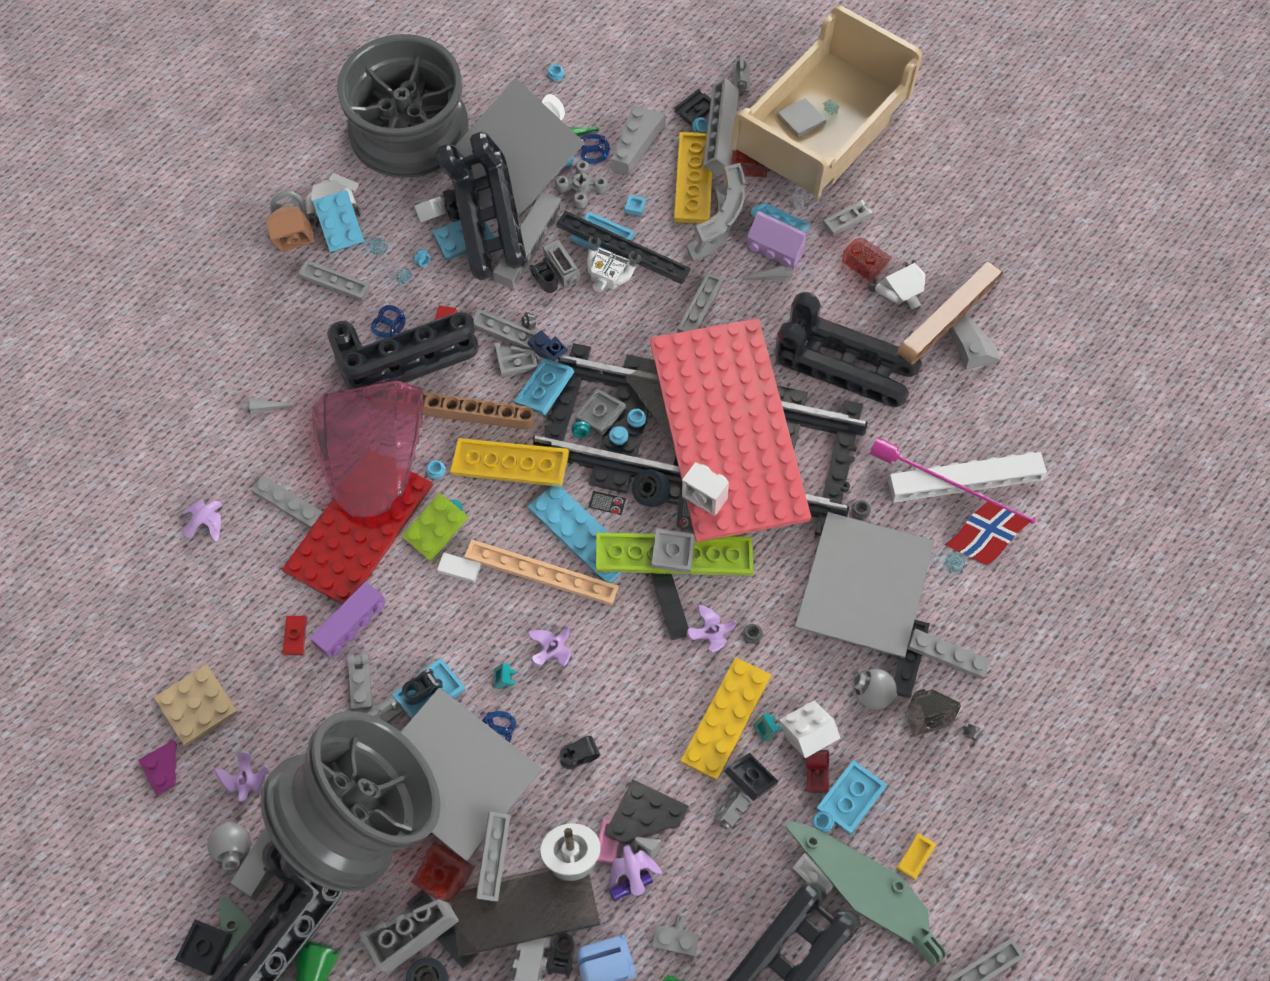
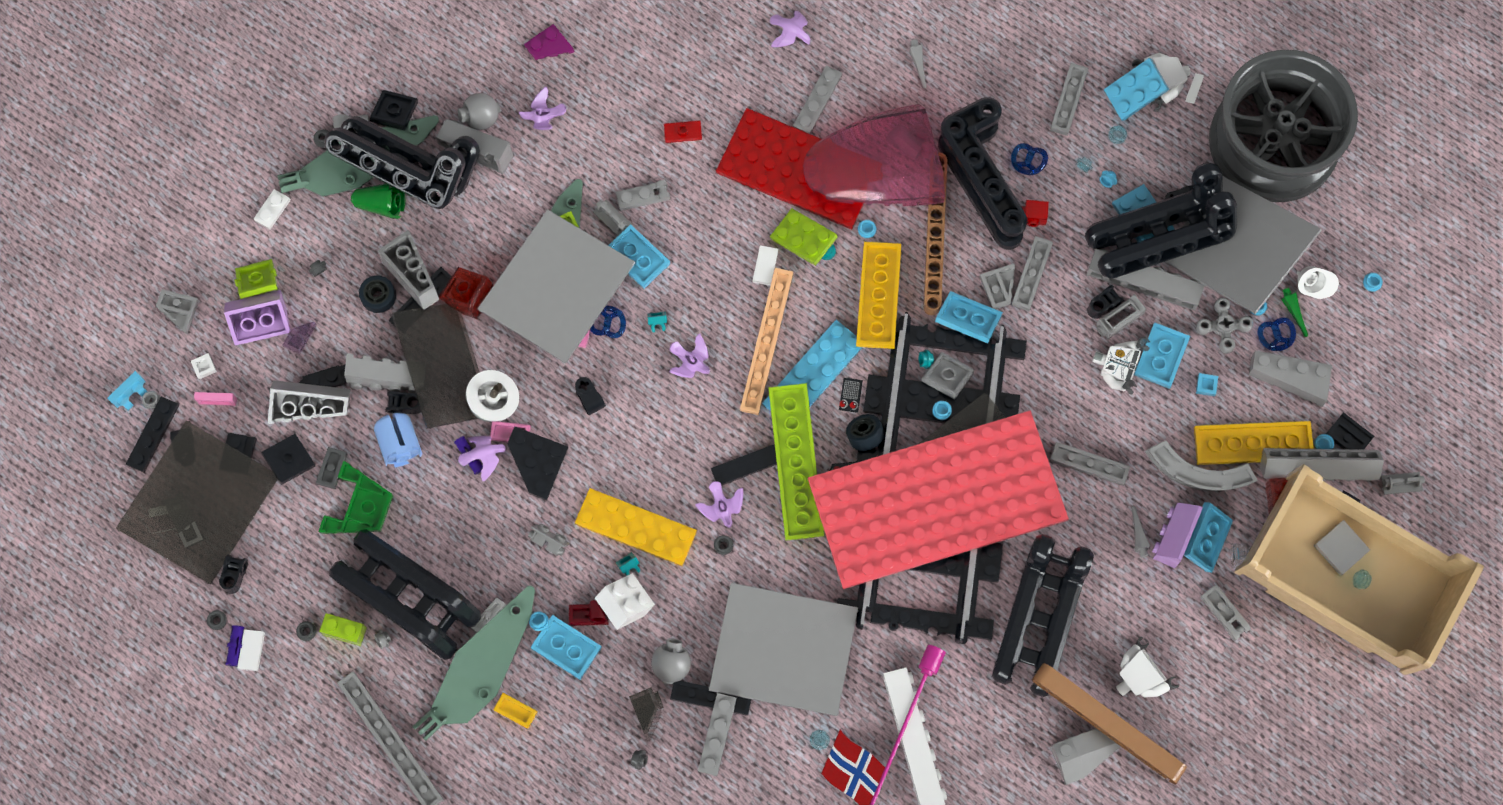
camera: 85 degrees right, 10 degrees up
(195, 705) = (608, 61): tan plate -> none
(288, 224) = (1123, 41): nougat piece -> none
(348, 620) = (700, 174): medium lavender brick -> none
(350, 801) = (537, 234): dark grey wheel -> none
(422, 685) = (638, 249): black piece -> none
(430, 209) = (1169, 177): white panel -> none
(493, 856) = (481, 330): light grey plate -> none
(529, 320) = (1046, 293): dark grey plate -> none
(546, 347) = (1013, 313): dark blue slope -> none
(618, 435) = (920, 394): medium azure plate -> none
(622, 246) = (1147, 376): black tile -> none
(649, 846) = (503, 467): light grey slope -> none
(673, 550) = (794, 457): light grey plate -> none
(676, 938) = (426, 499): light grey plate -> none
(705, 488) = (852, 476): white brick -> none
(751, 776) = (576, 552): black plate -> none
(861, 504) = (868, 636): dark grey plate -> none
(865, 258) = (1176, 634): clear red slope -> none

